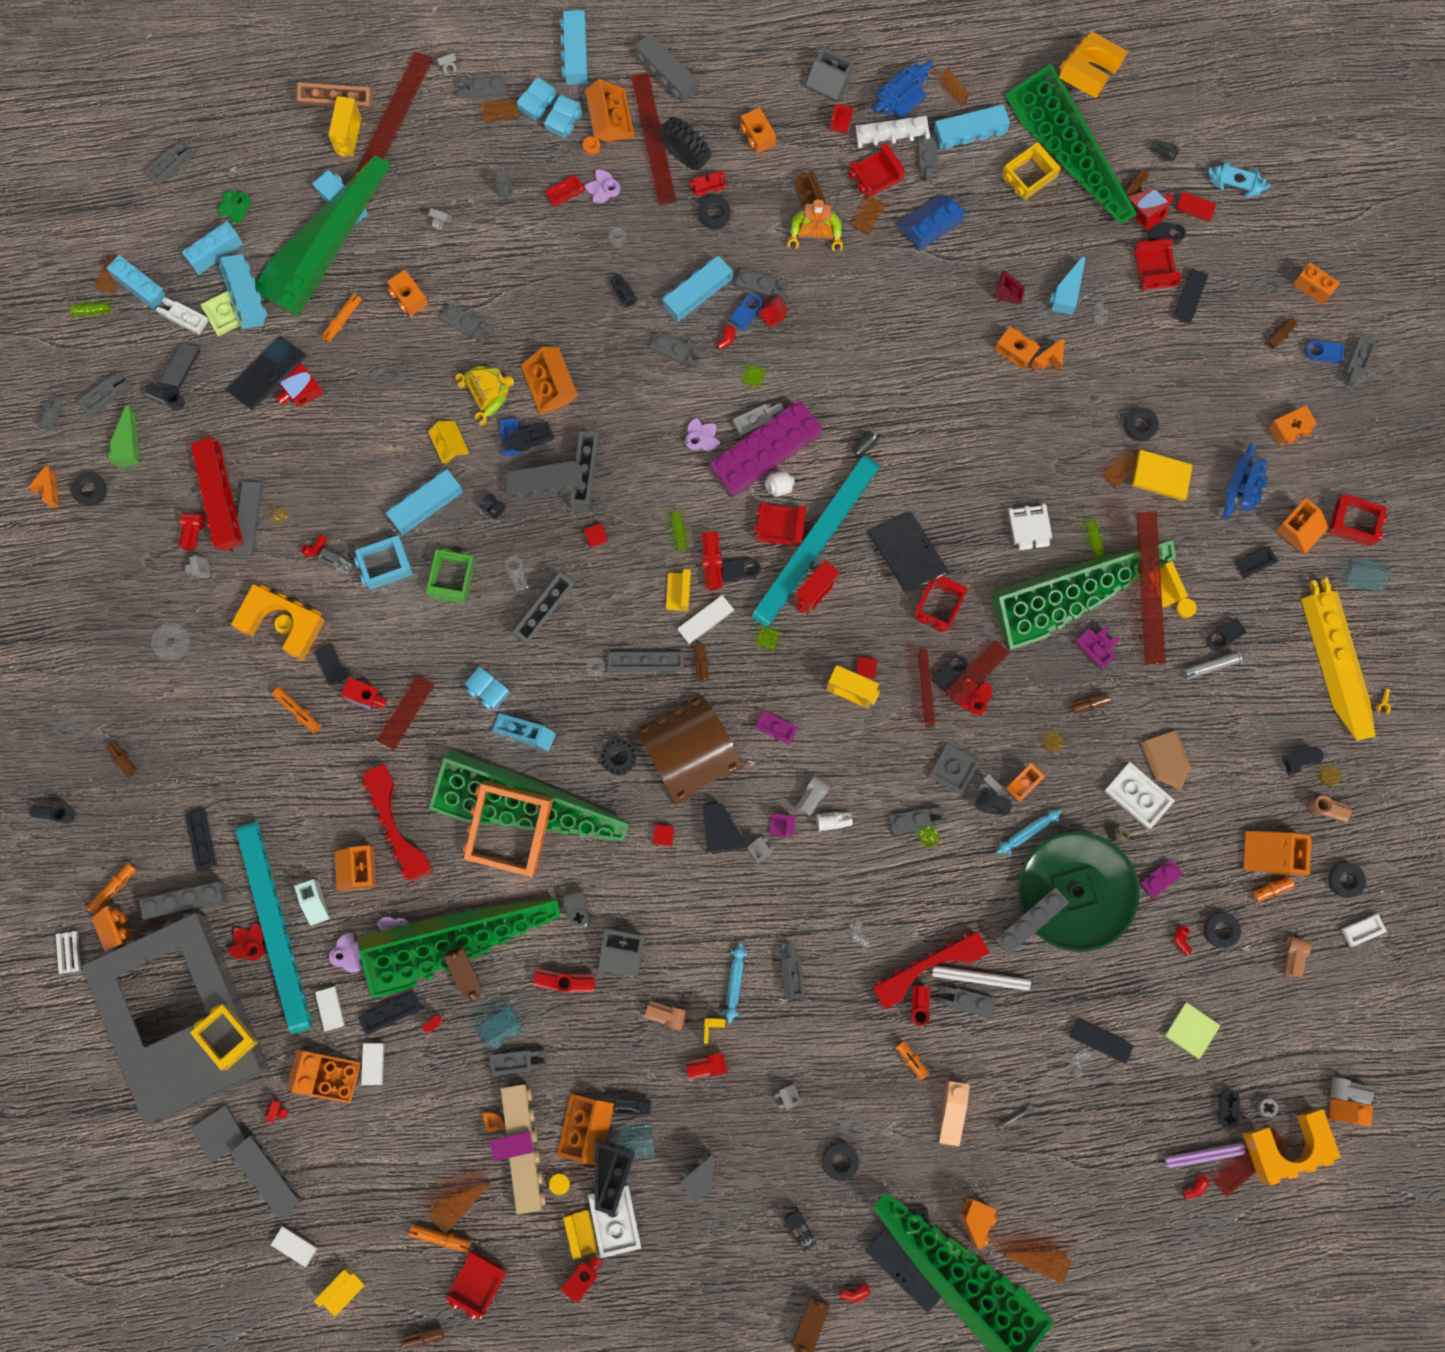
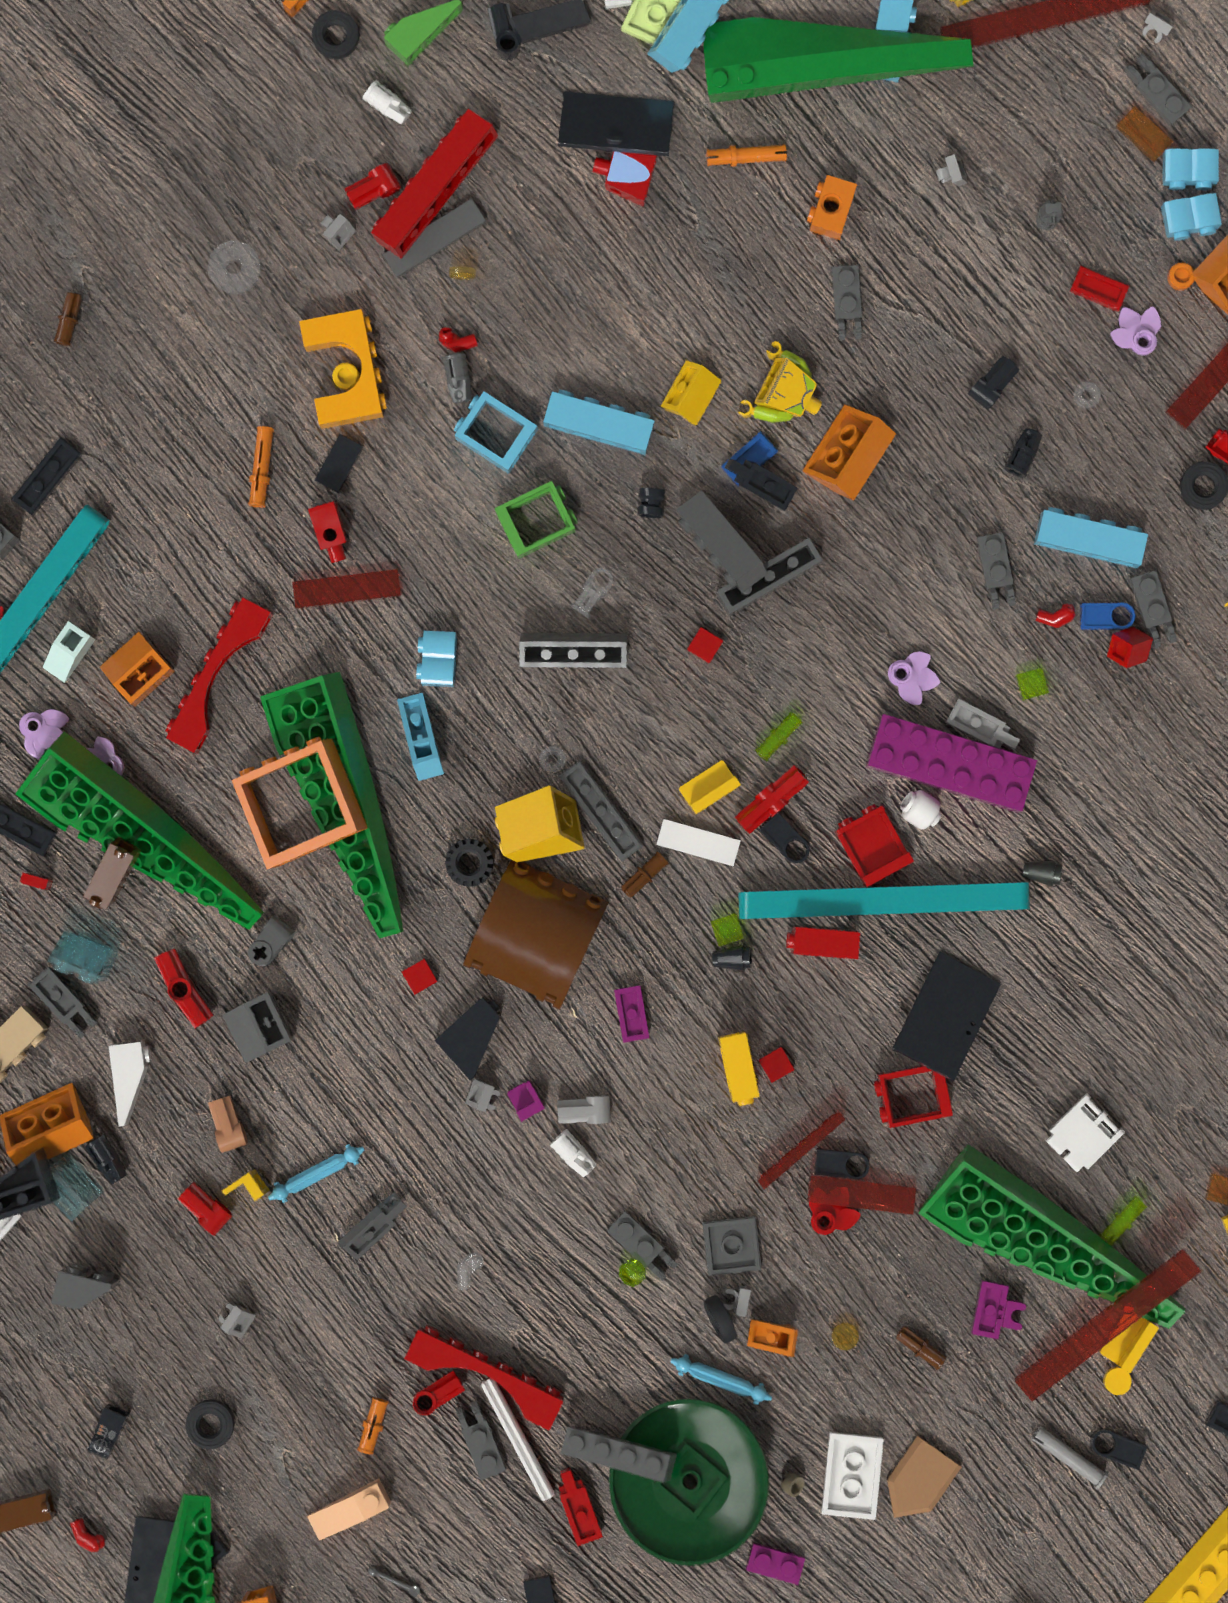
camera: 55 degrees right, 10 degrees up
(149, 488) = (387, 102): none -> white hinge
(572, 281) = (990, 387): none -> black piece
(589, 1051) = (128, 1073): none -> white slope
(627, 700) = (539, 825): none -> yellow slope
(787, 647) = (733, 958): none -> black cone
(1049, 971) = (579, 1509): none -> red hinge

